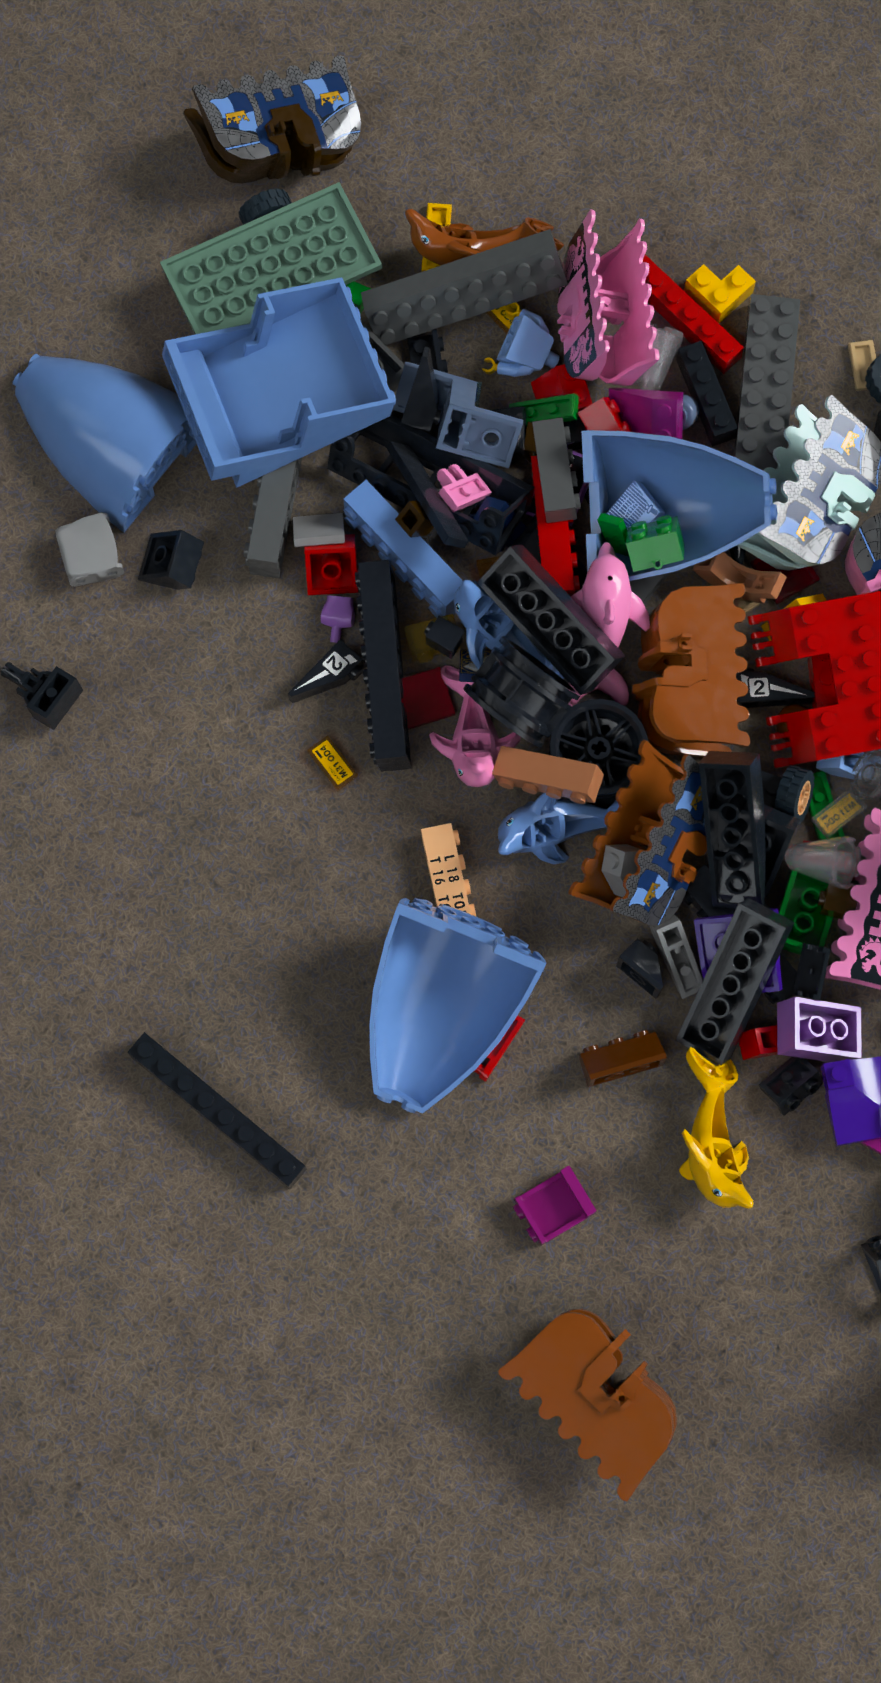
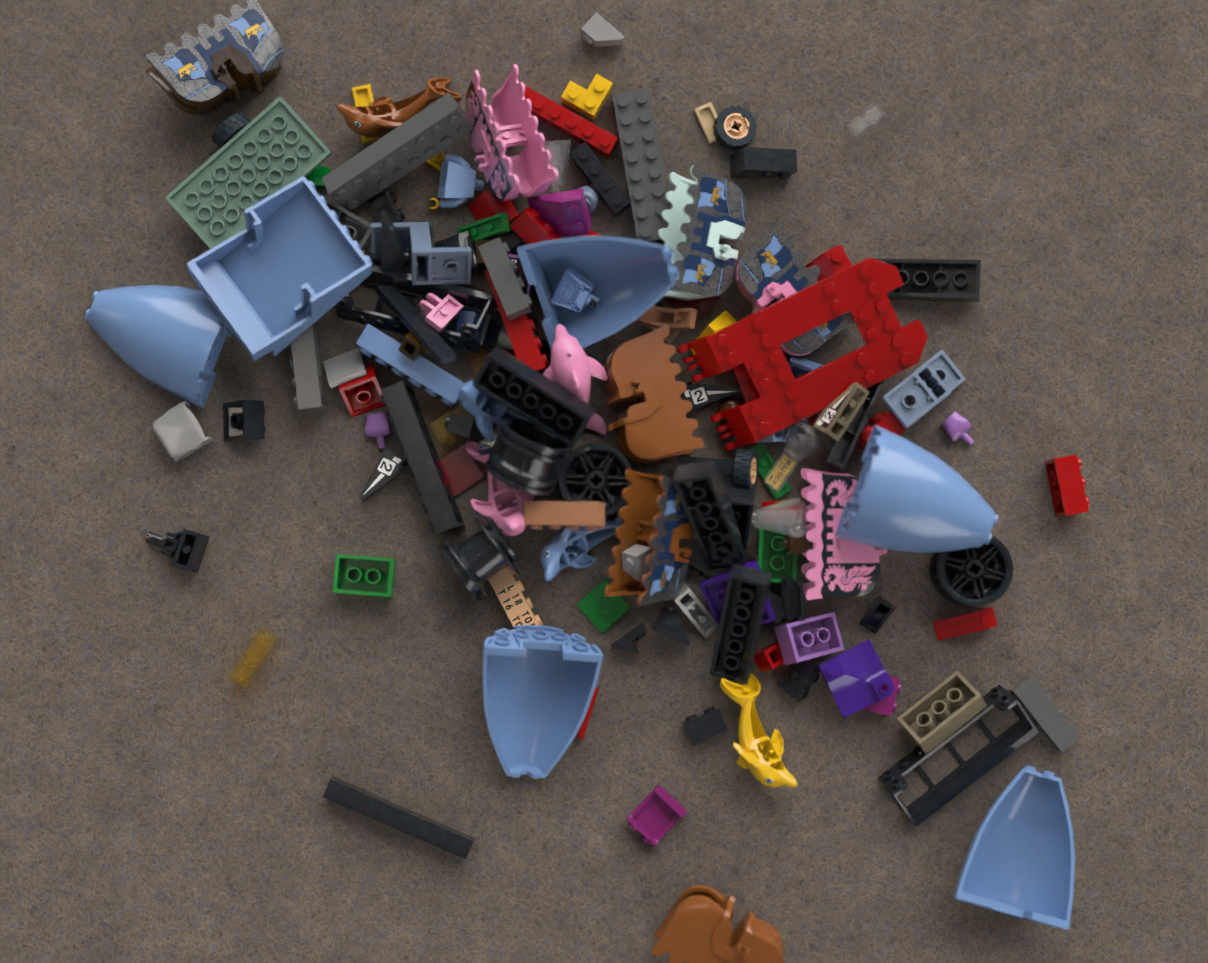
camera: 15 degrees left, 10 degrees up
(93, 854) = (254, 657): none -> clear yellow brick
(266, 790) = (364, 575): none -> green brick
(332, 763) = (406, 538): tile -> none
(423, 803) = (480, 557): none -> black wheel
(560, 920) = (601, 609): none -> green tile
(577, 971) = (625, 642): none -> black slope
(614, 532) = (563, 313): green tile -> none
(622, 1058) = (674, 696): reddish brown slope -> none
(650, 1108) = (705, 726): none -> black brick
(655, 542) = (594, 315): green brick -> none
(758, 221) = (601, 32): none -> light grey slope

